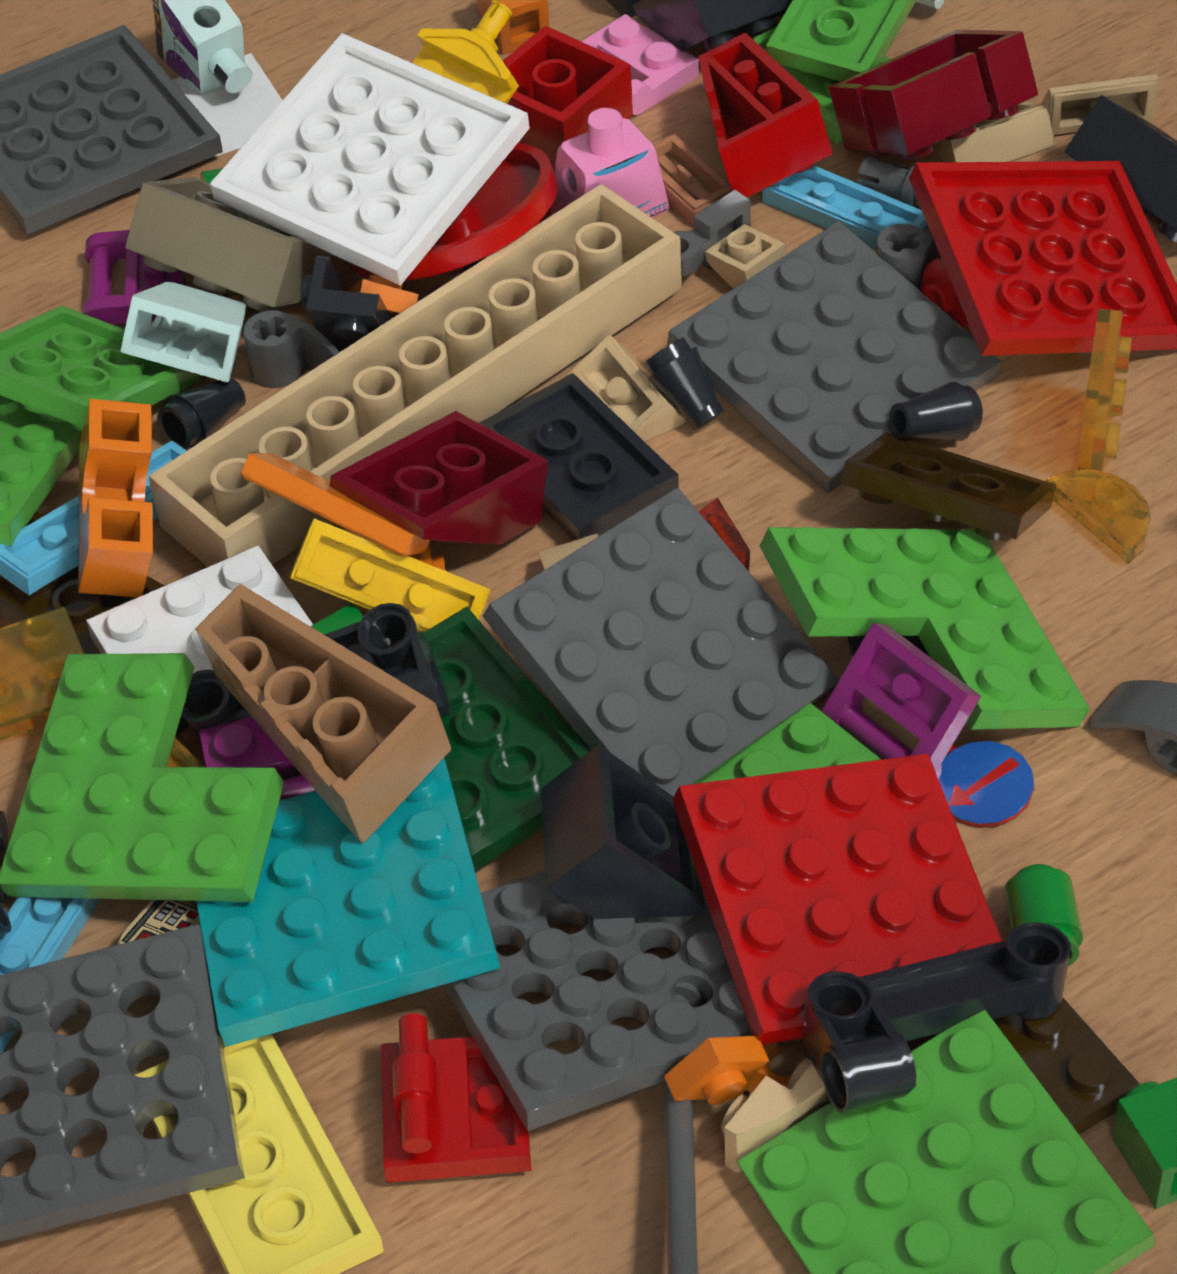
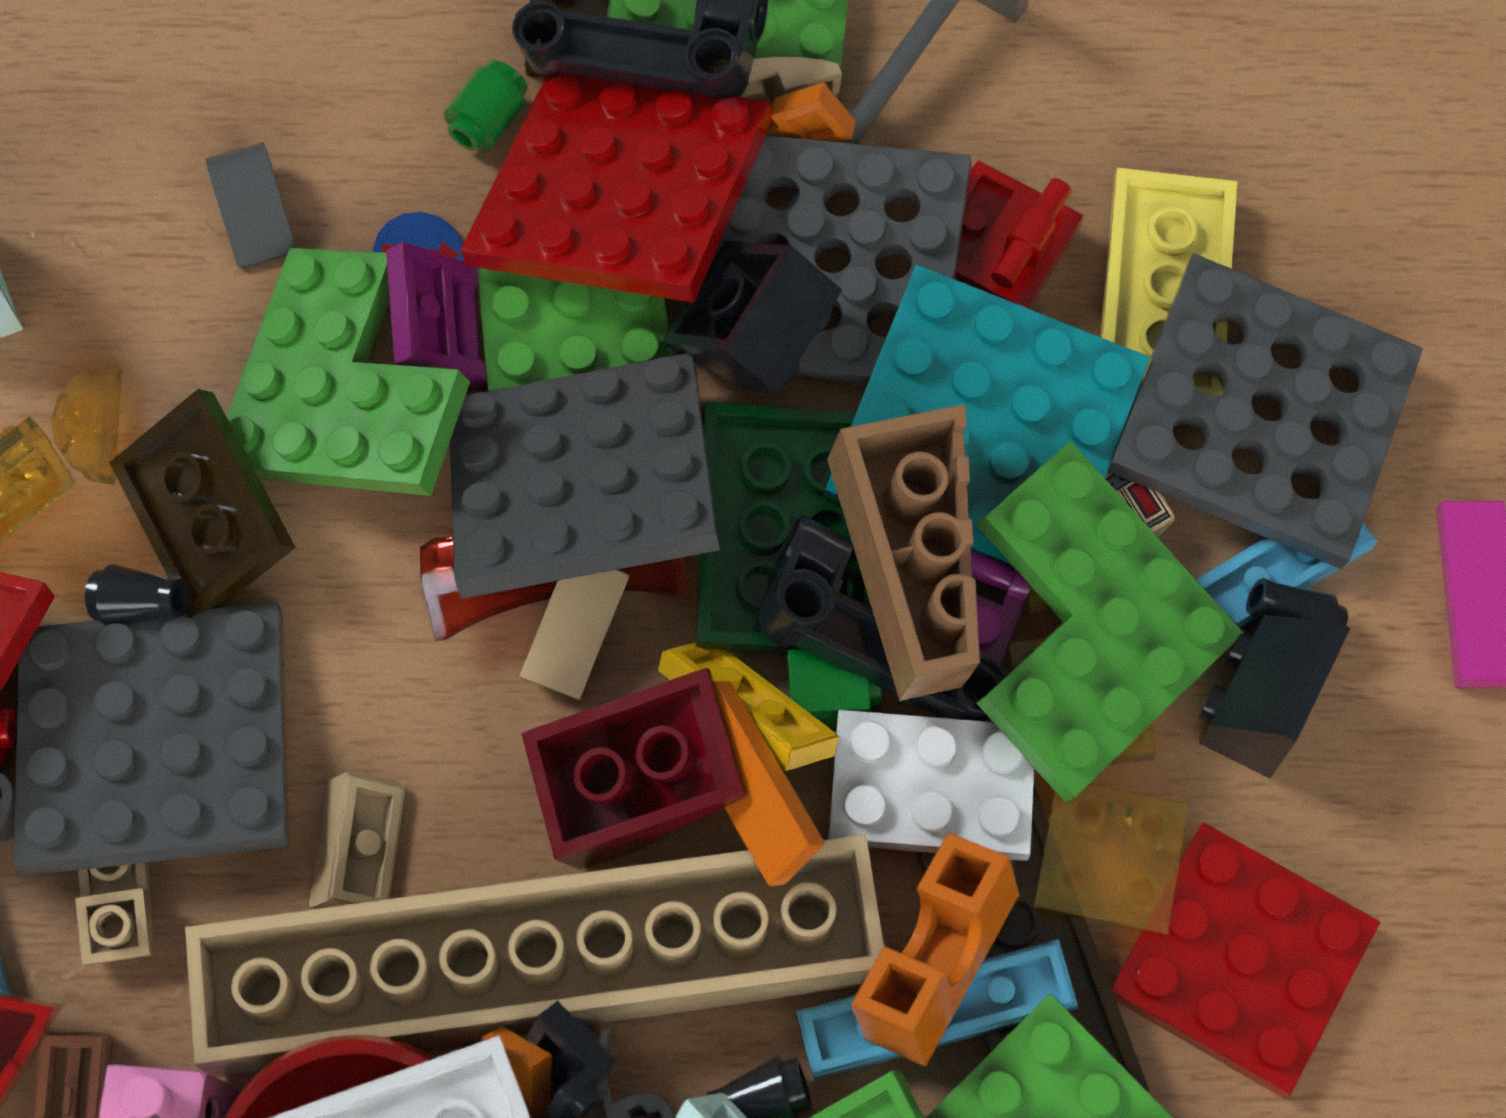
camera: 150 degrees left, 20 degrees up
(595, 461) = (466, 785): black plate -> none
(684, 382) = (312, 789): black cone -> none
(710, 227) = (112, 977): dark grey plate -> none

